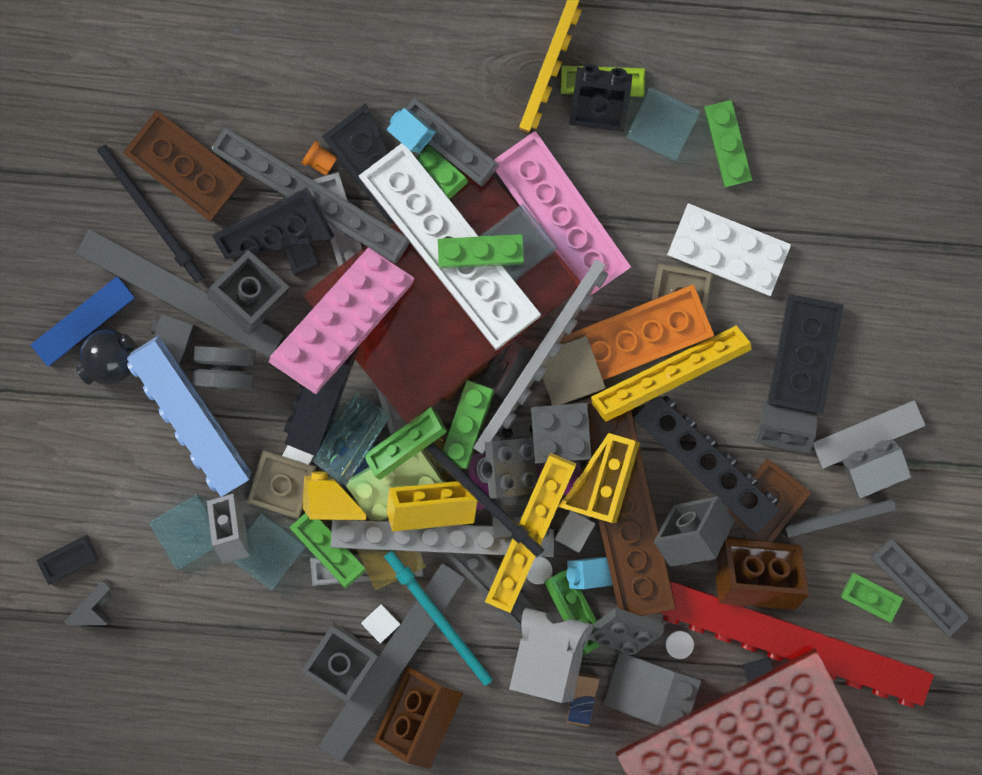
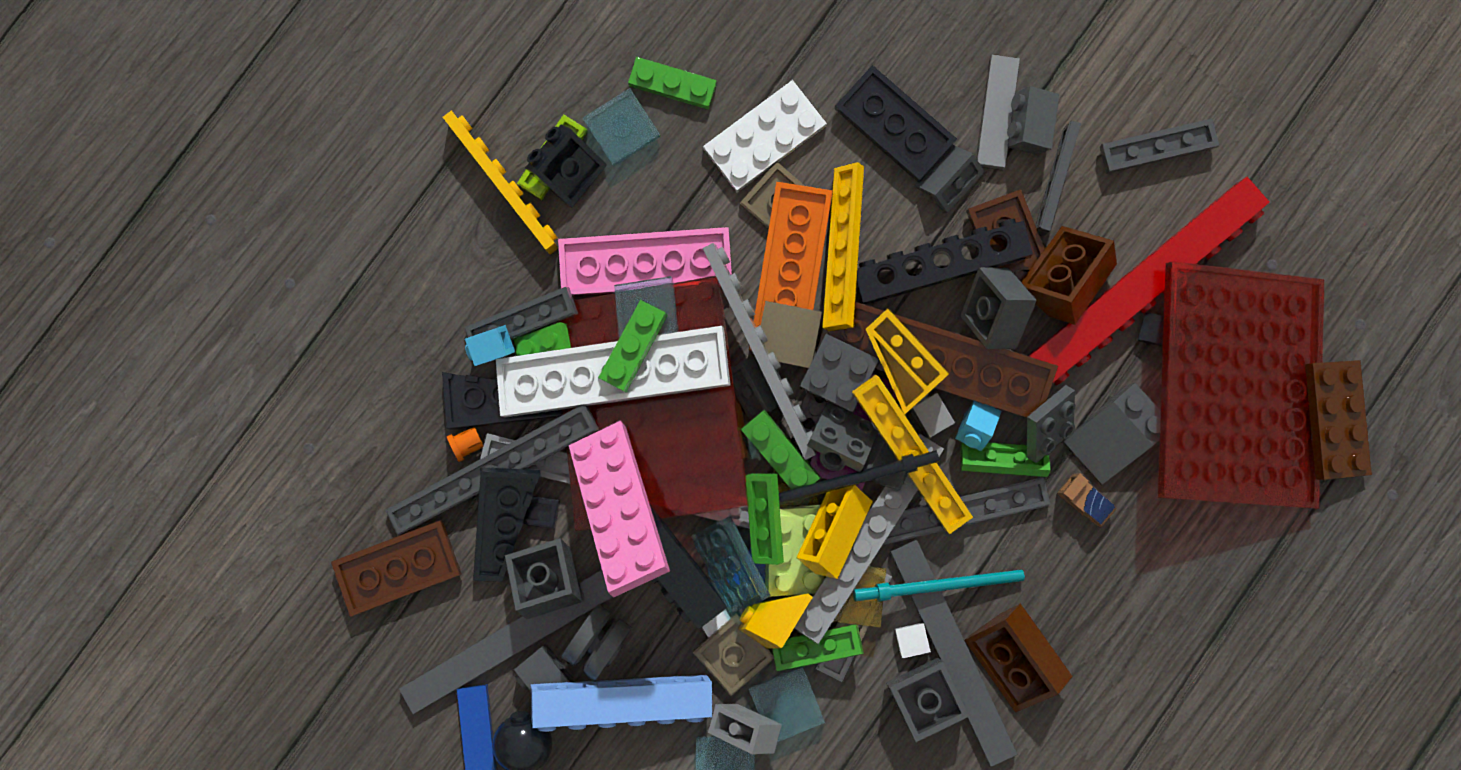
camera: 55 degrees left, 5 degrees down
(183, 256) = (476, 618): black bar -> none
(540, 570) = (951, 468): white tile -> none
(549, 656) = (1034, 505): light grey piece -> none
(679, 644) = (1087, 384): white tile -> none
(871, 597) = (1144, 192): bright green plate -> none

